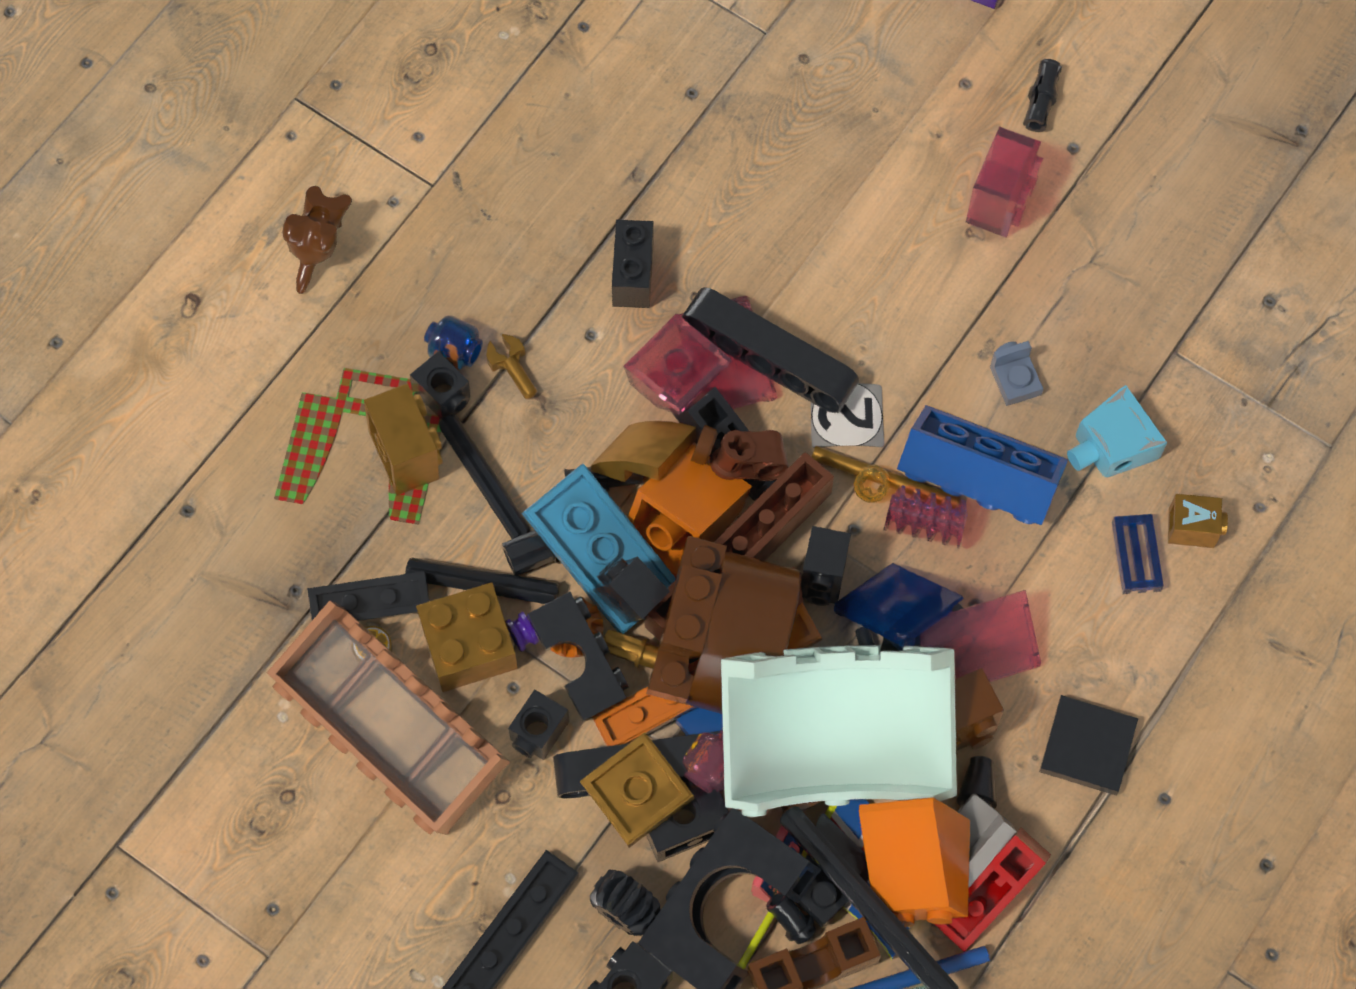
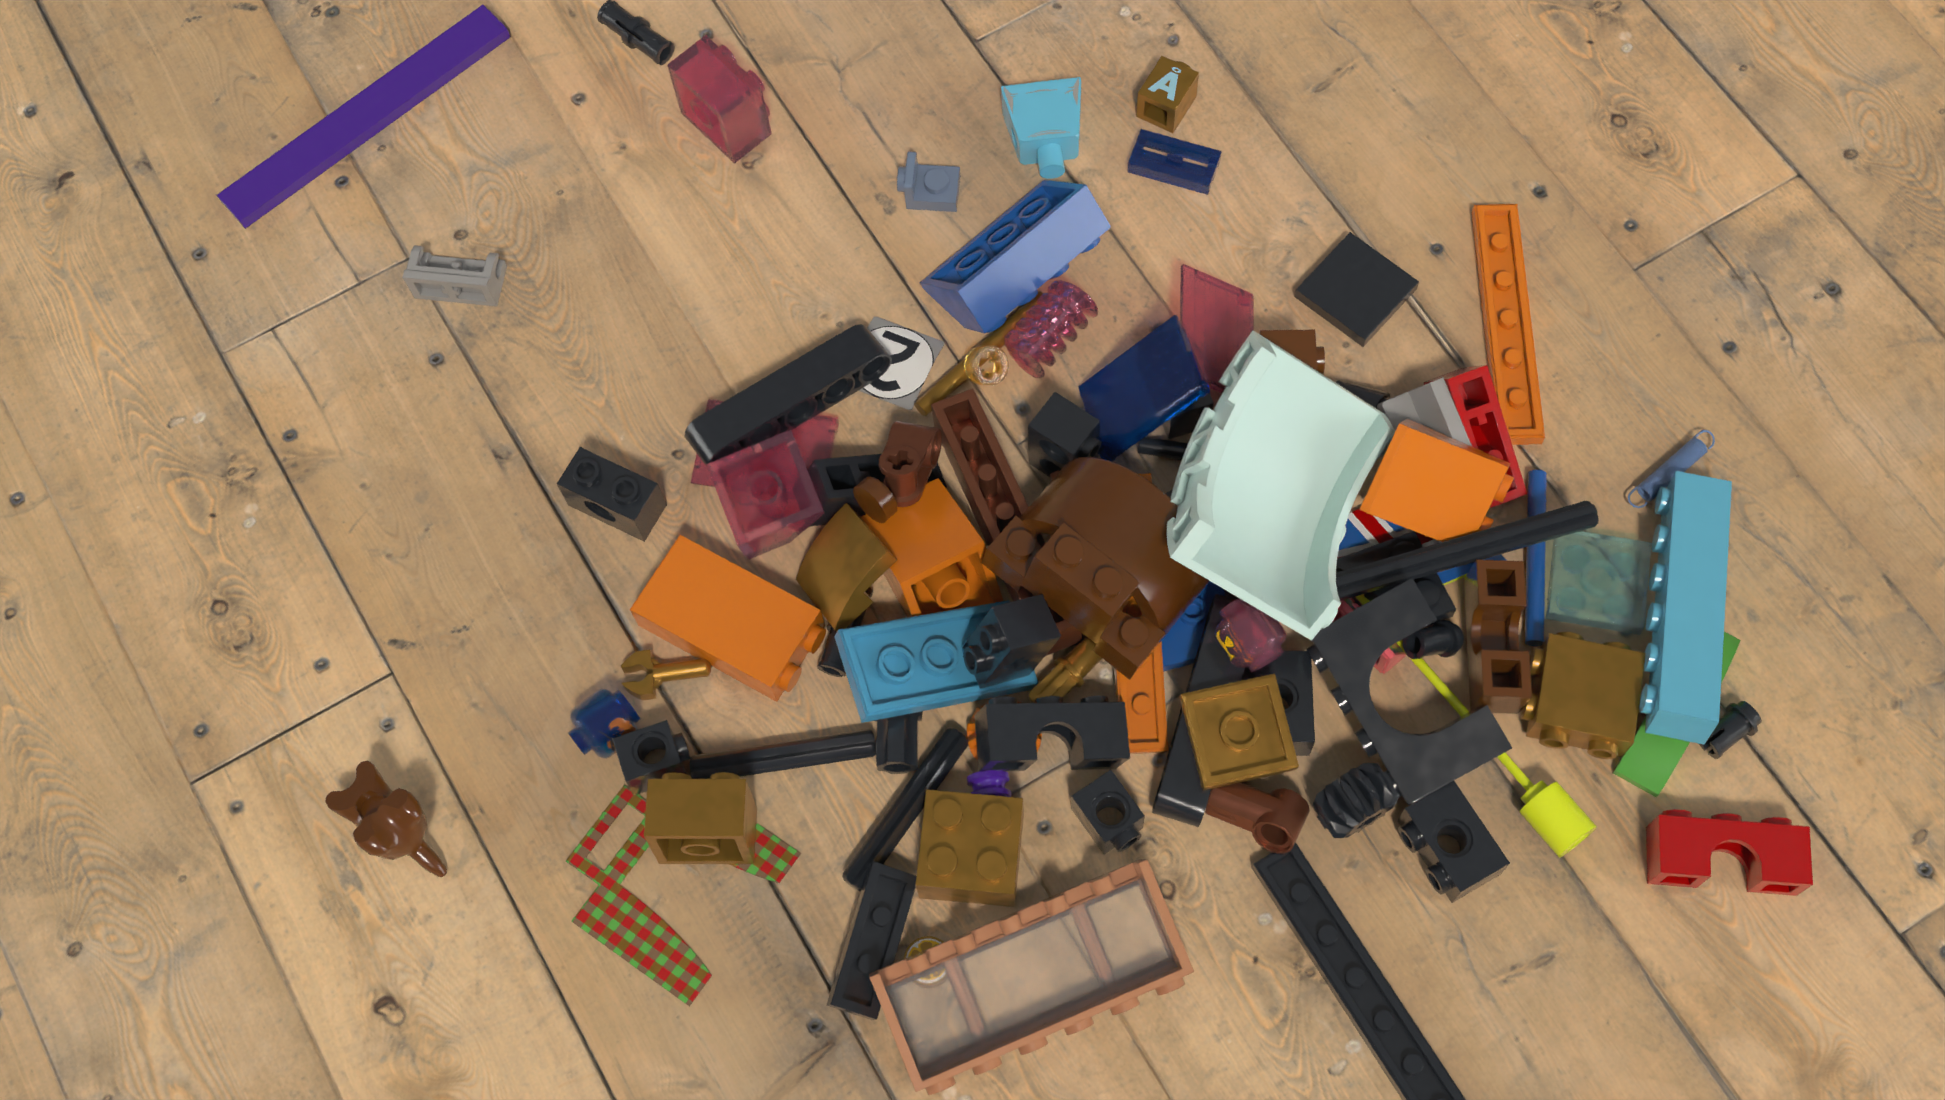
camera: 60 degrees left, 0 degrees up
(572, 390) = (729, 618): none -> orange brick
(586, 844) = (1271, 817): none -> copper piece
(762, 71) = (455, 278): none -> light grey hinge
(1118, 880) = (1508, 320): none -> orange tile

